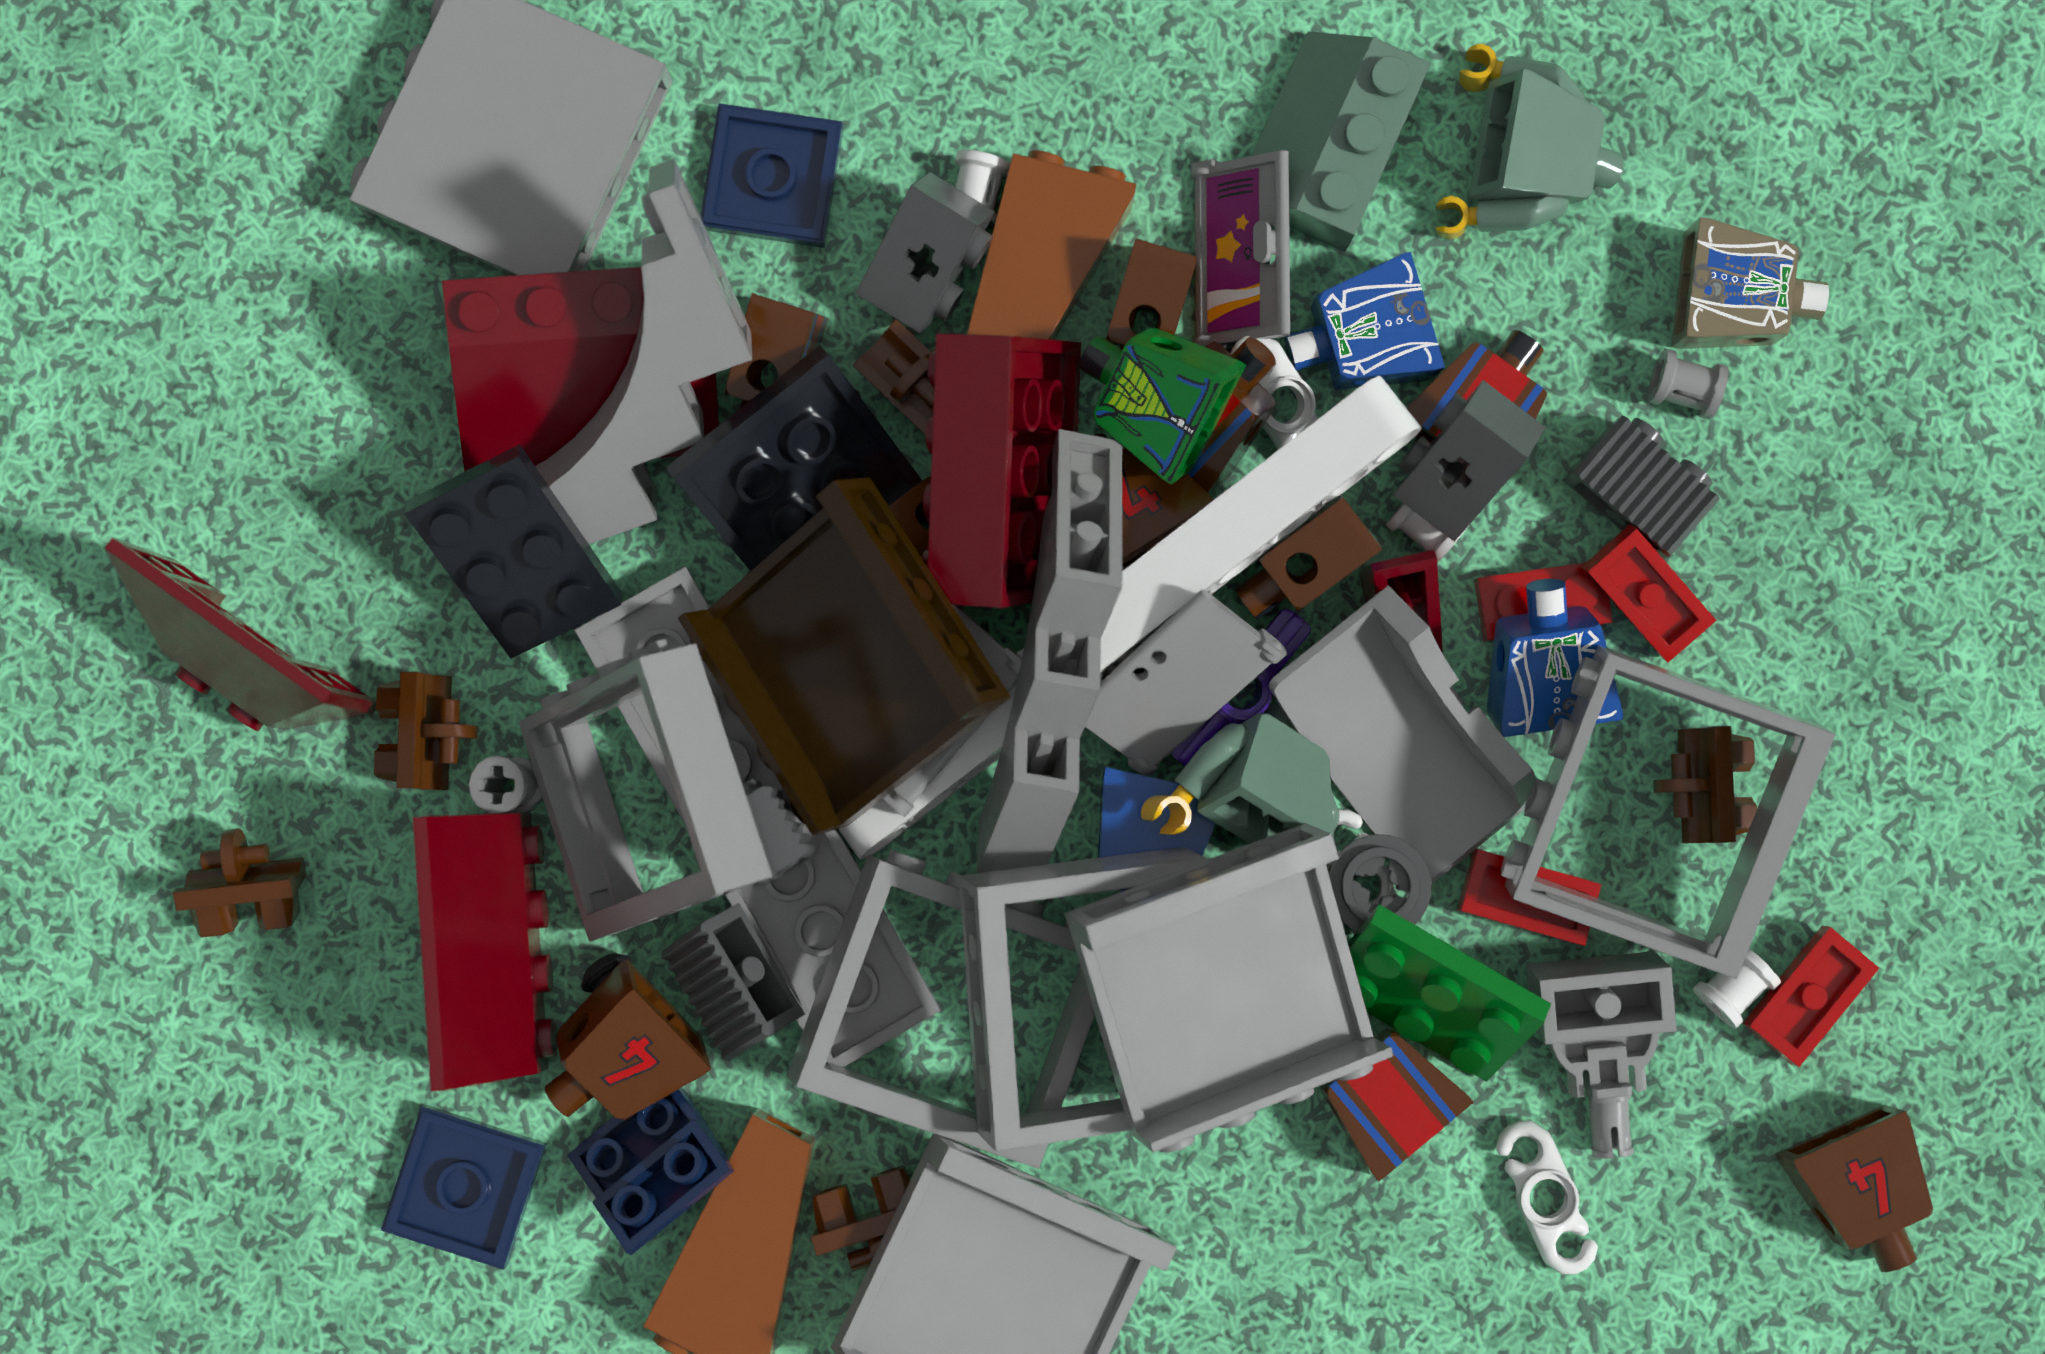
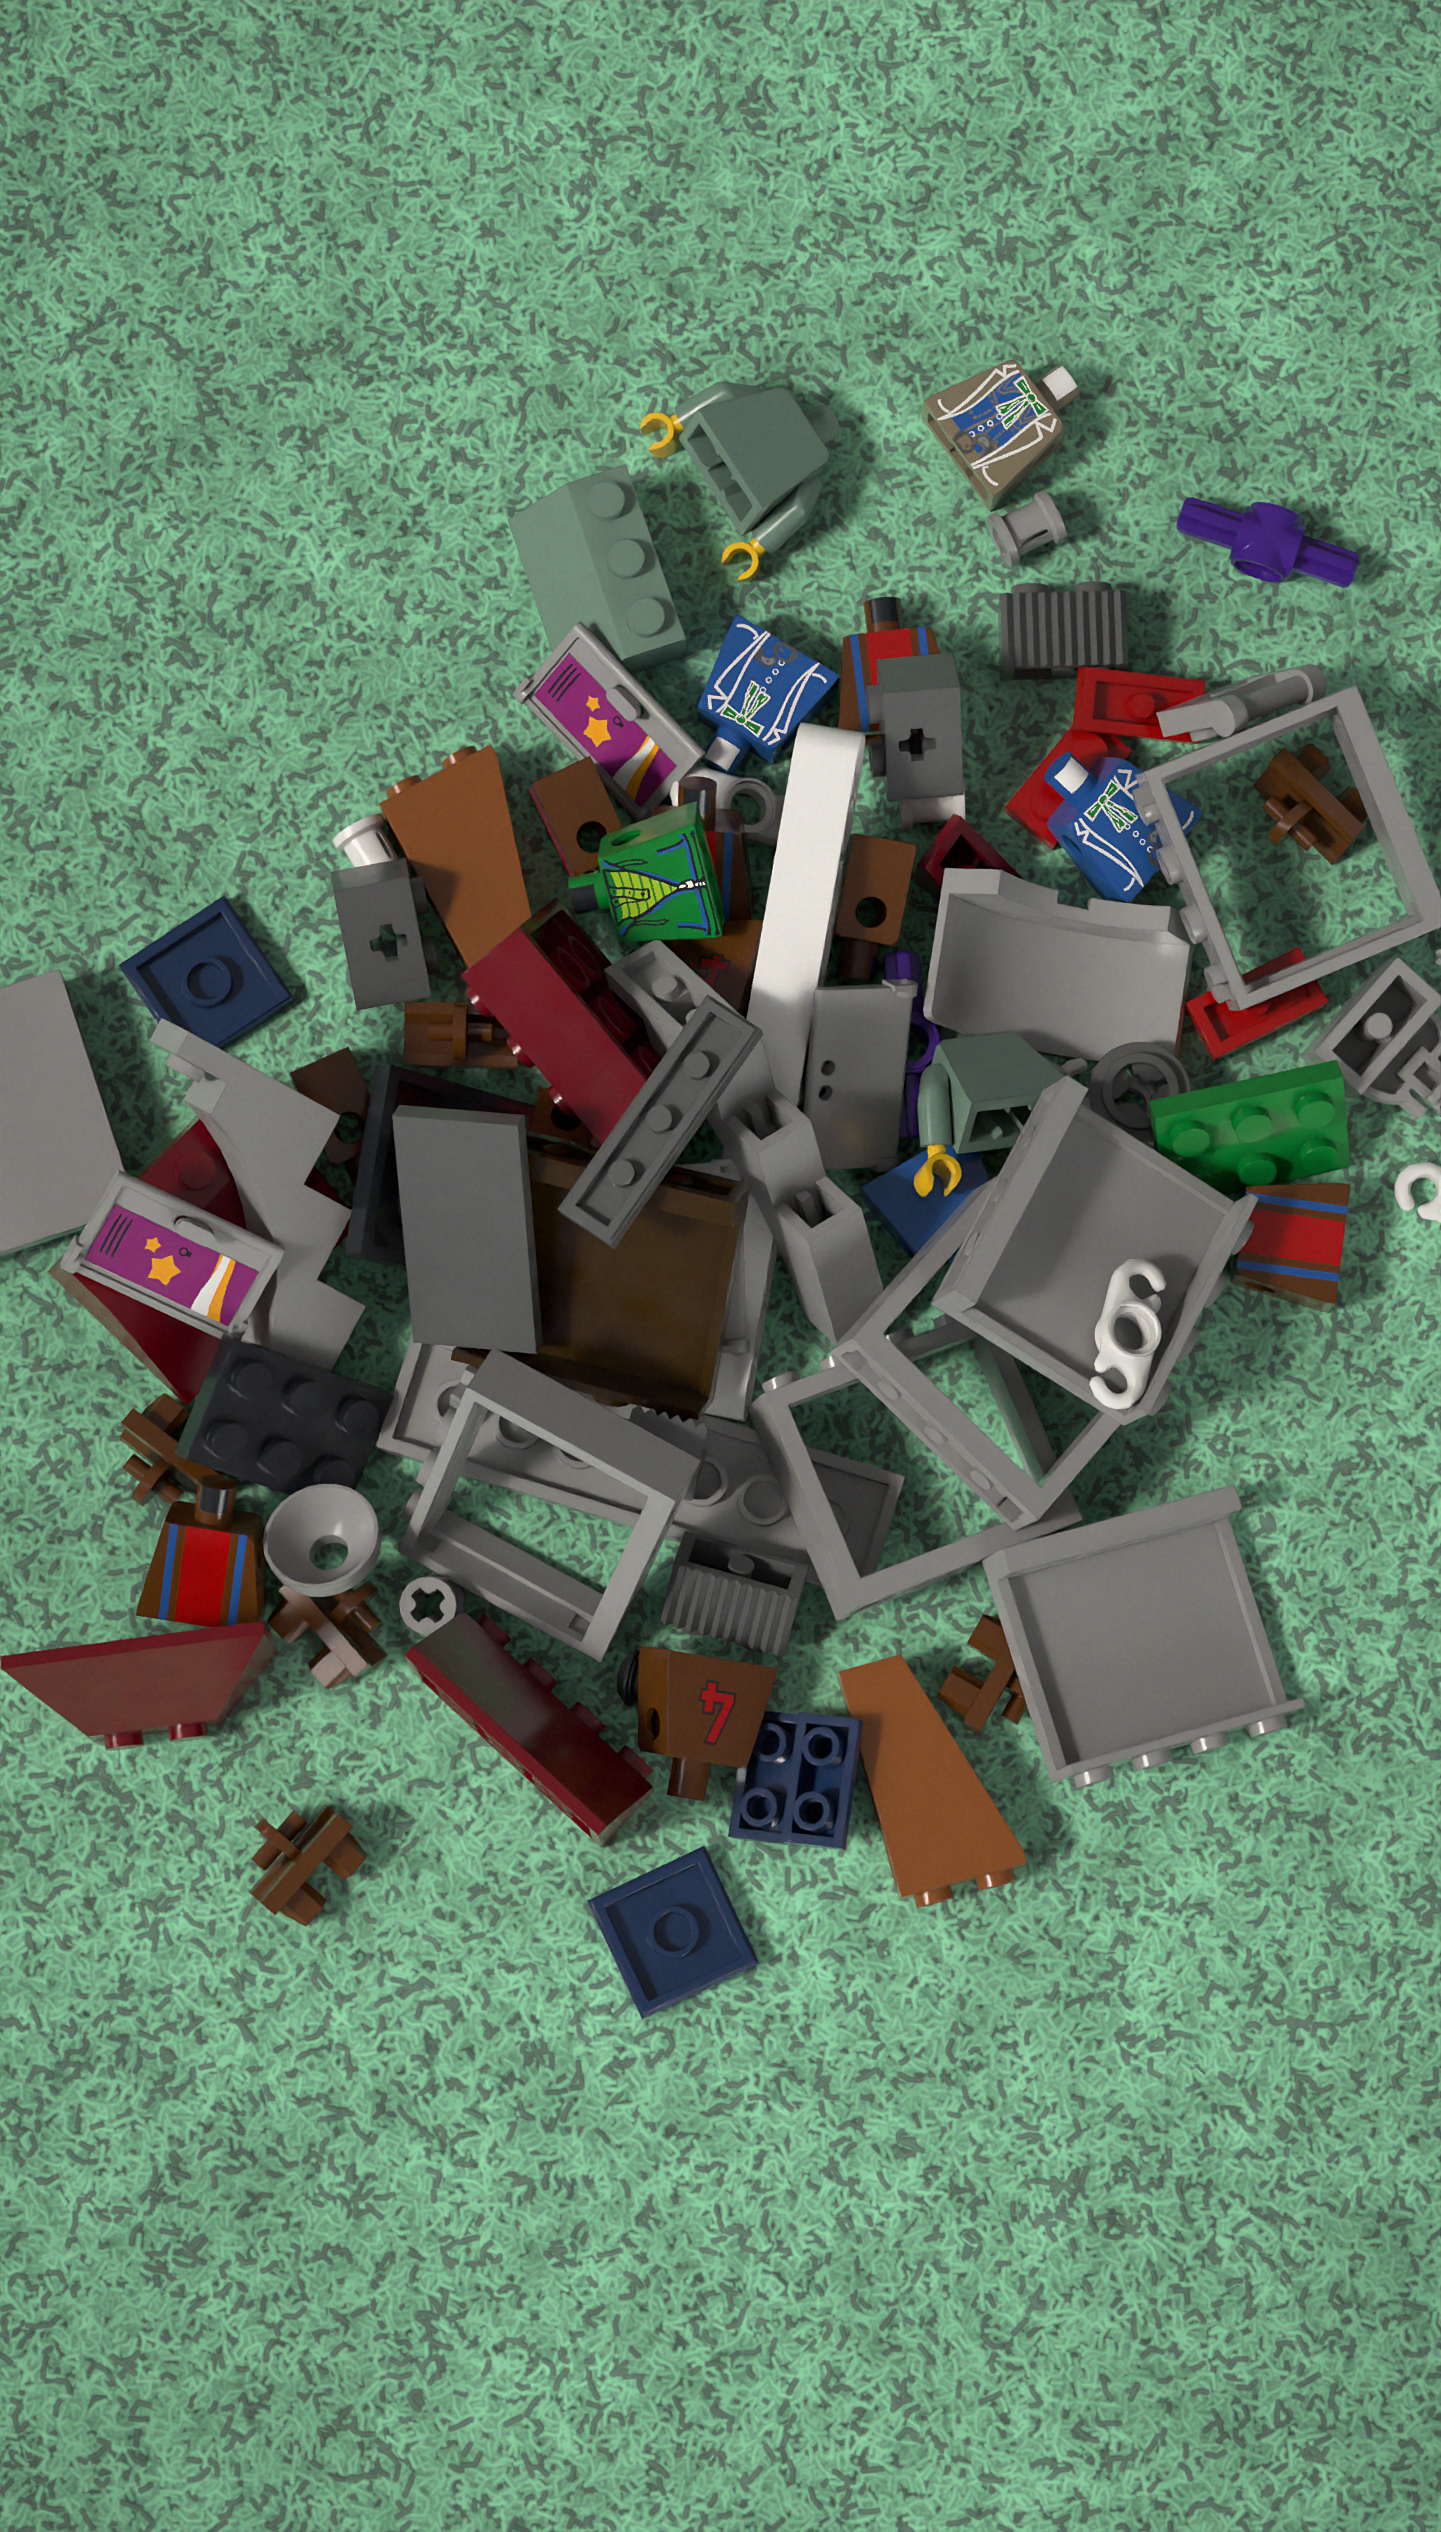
camera: 40 degrees left, 5 degrees down
(369, 606) = (207, 1561): none -> torso
(422, 472) = (153, 1437): none -> reddish brown hips
(454, 642) = (314, 1519): none -> light grey piece
(526, 364) = (173, 1267): none -> door
(770, 531) = (468, 1228): none -> dark grey tile
(979, 587) = (660, 1121): none -> dark grey tile
(1179, 1101) = (1123, 1303): none -> white piece
(1728, 662) = (1234, 705): none -> light grey plate
(1860, 558) = (1267, 542): none -> dark purple axle

